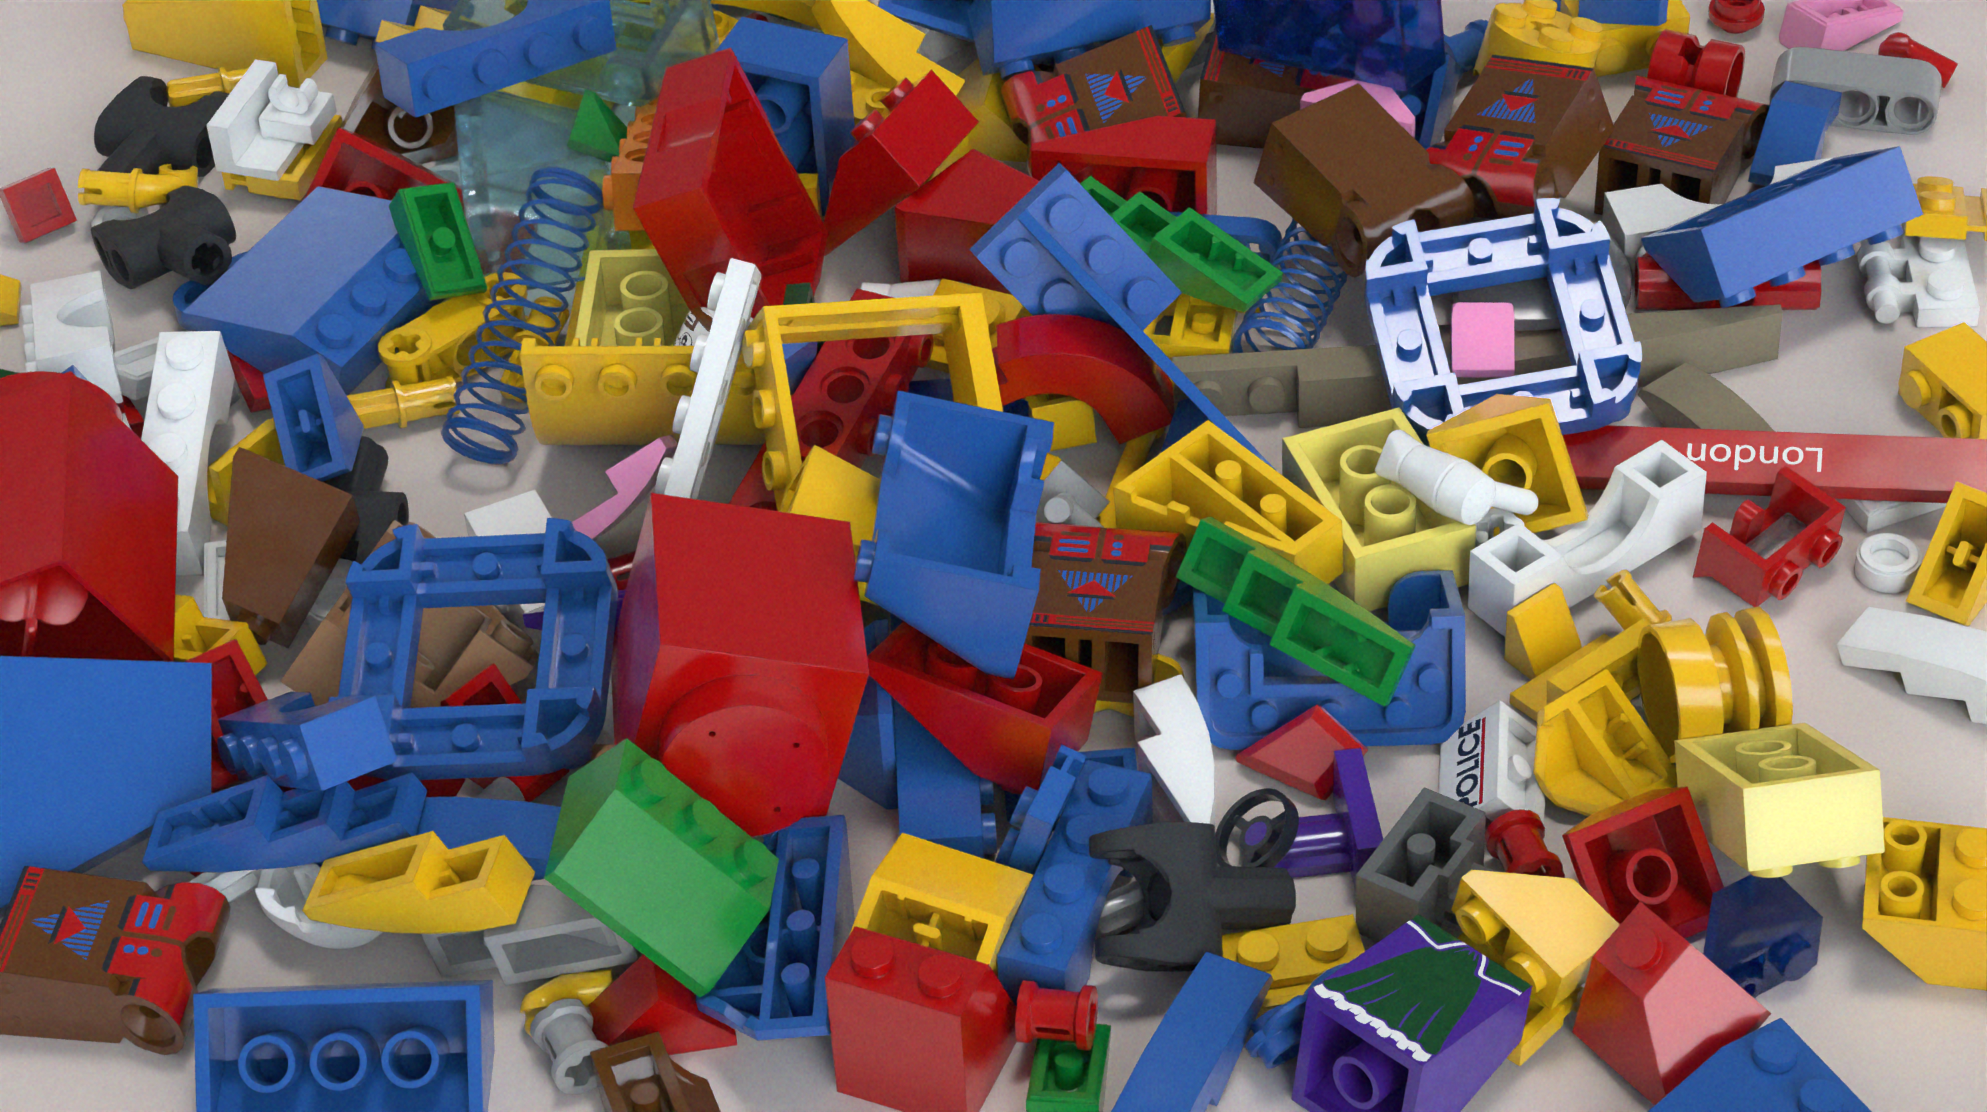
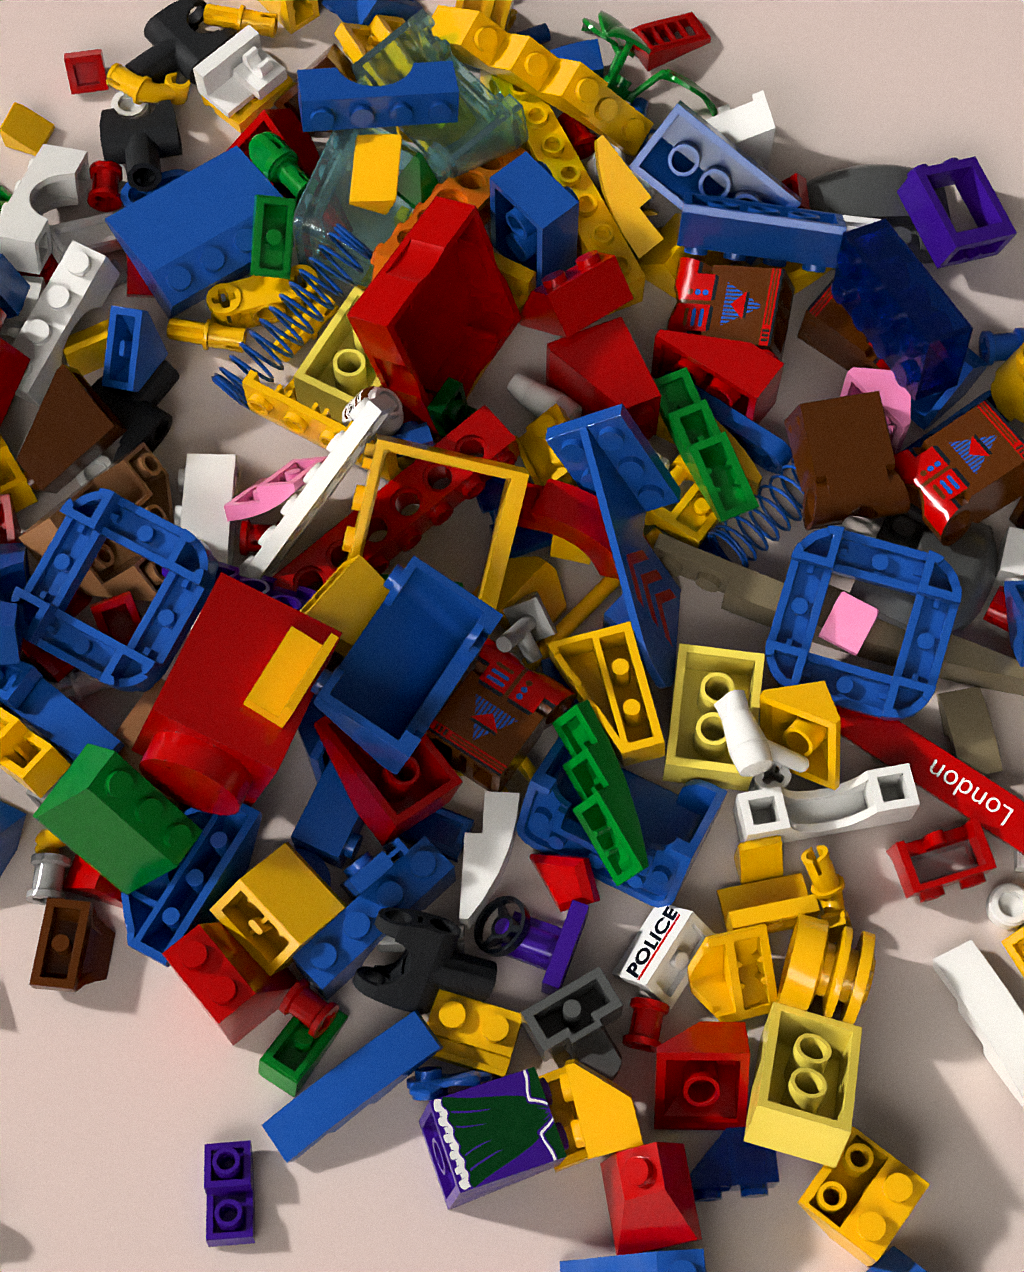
camera: 25 degrees right, 25 degrees up
(147, 302) = (105, 186): none -> red bush
(383, 169) = (278, 162): none -> green arm
(544, 124) = (375, 172): none -> yellow slope
(821, 564) = (288, 676): none -> yellow panel

